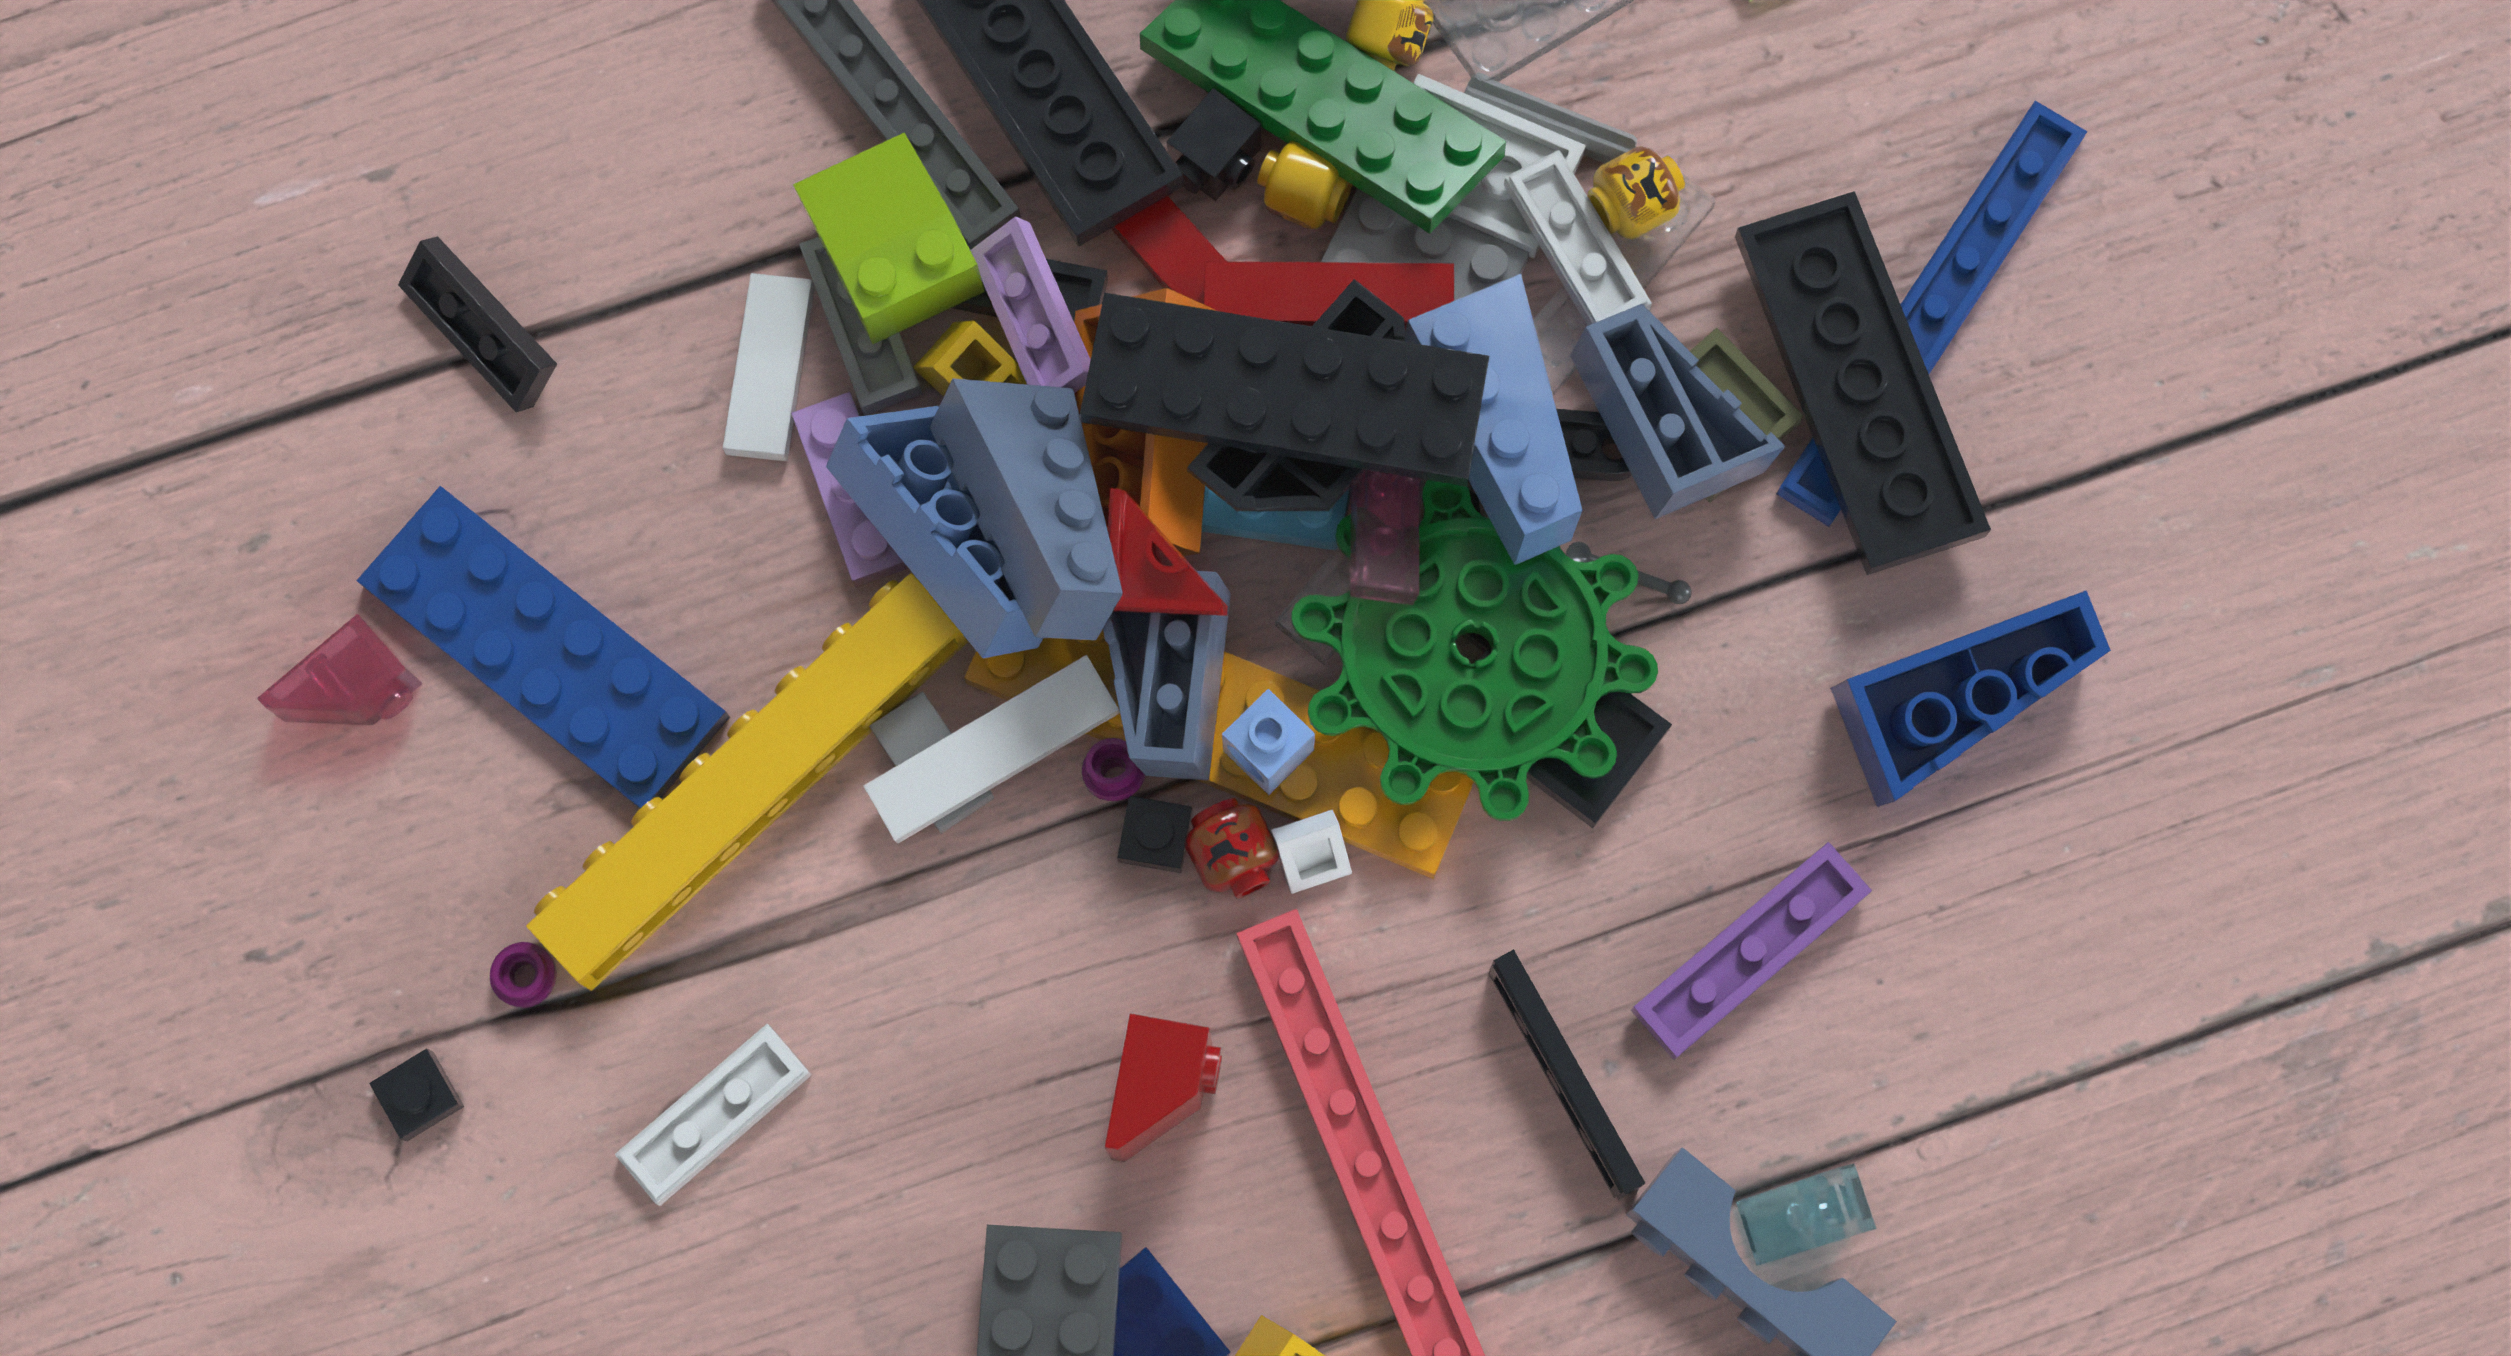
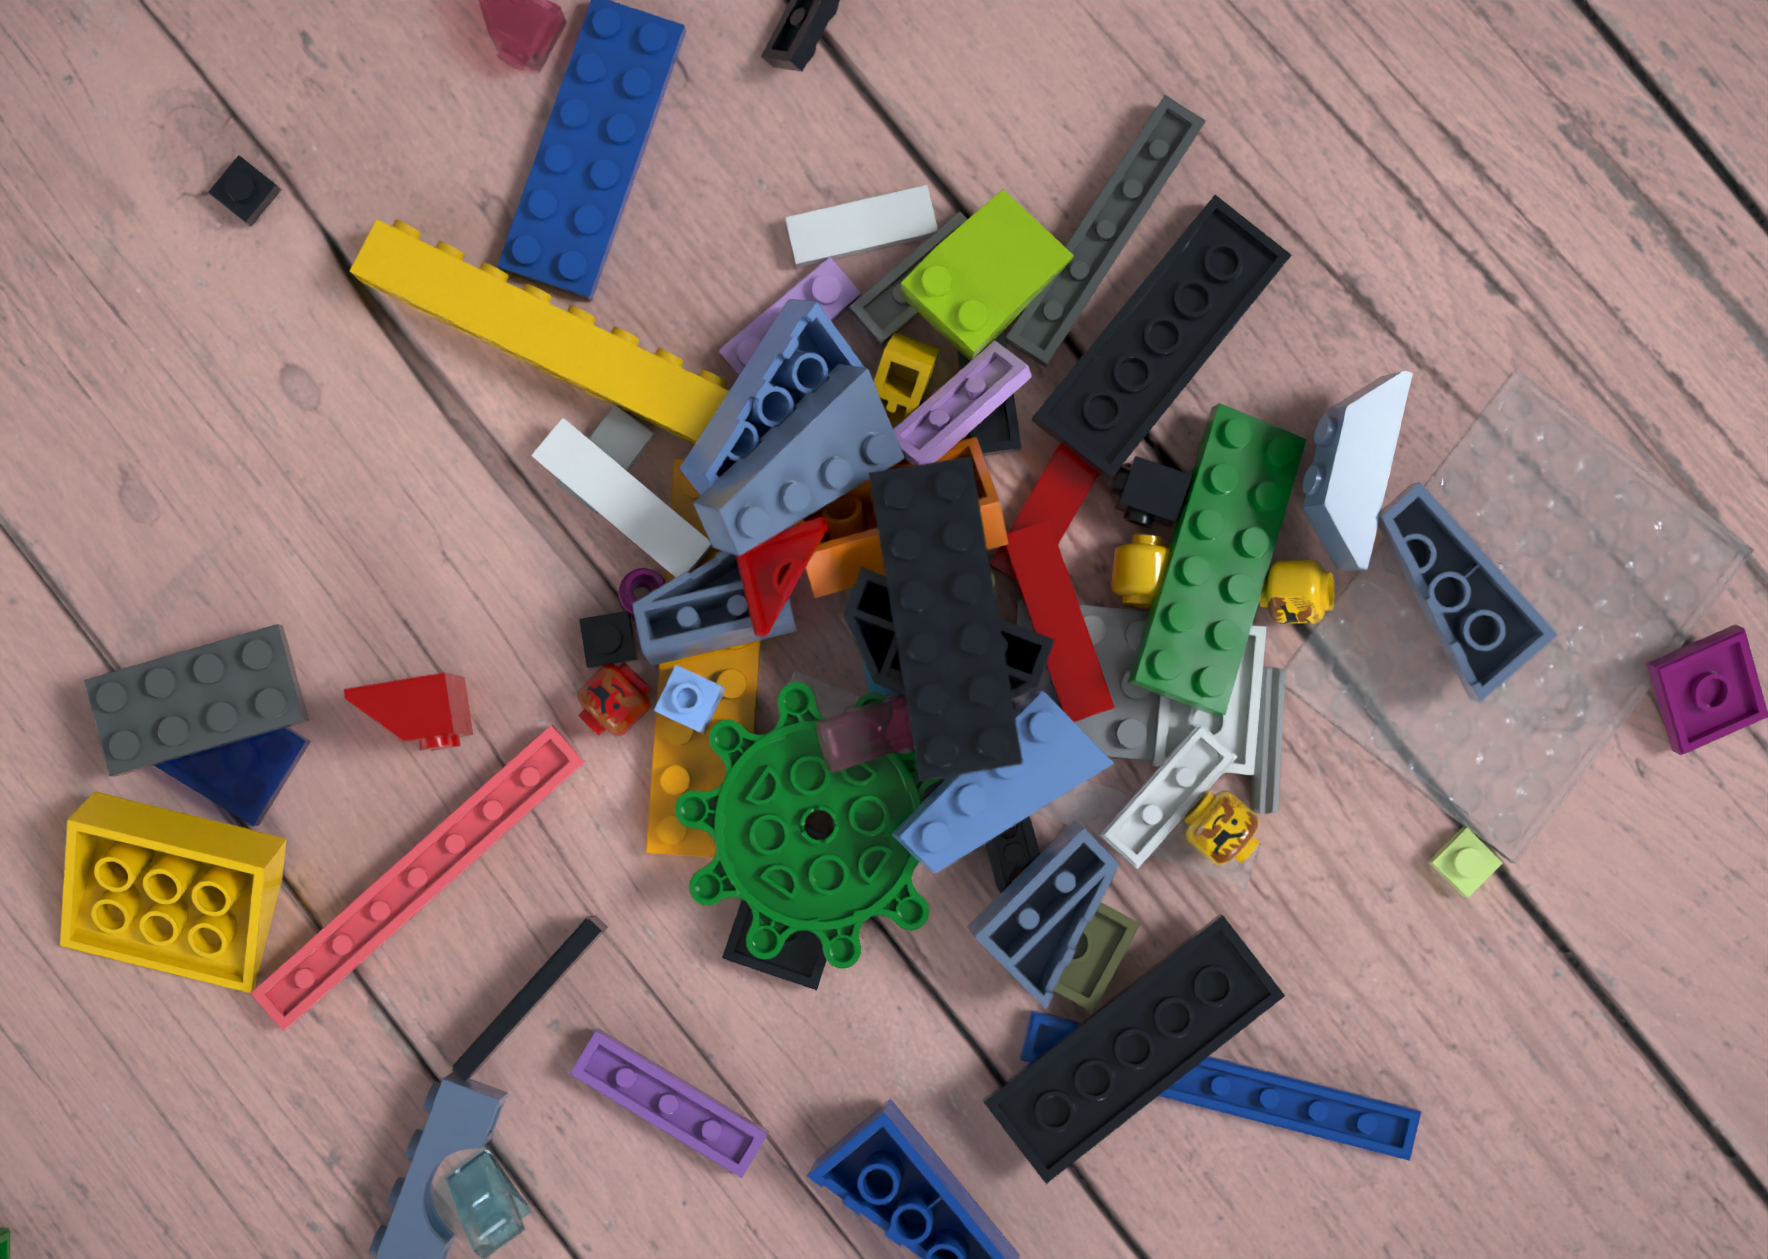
camera: 70 degrees right, 10 degrees up
(509, 961) = (341, 221): magenta plate -> none
(713, 1114) = (301, 402): white tile -> none
(1312, 851) = (630, 757): white plate -> none
(1677, 591) = (926, 960): dark grey hinge -> none

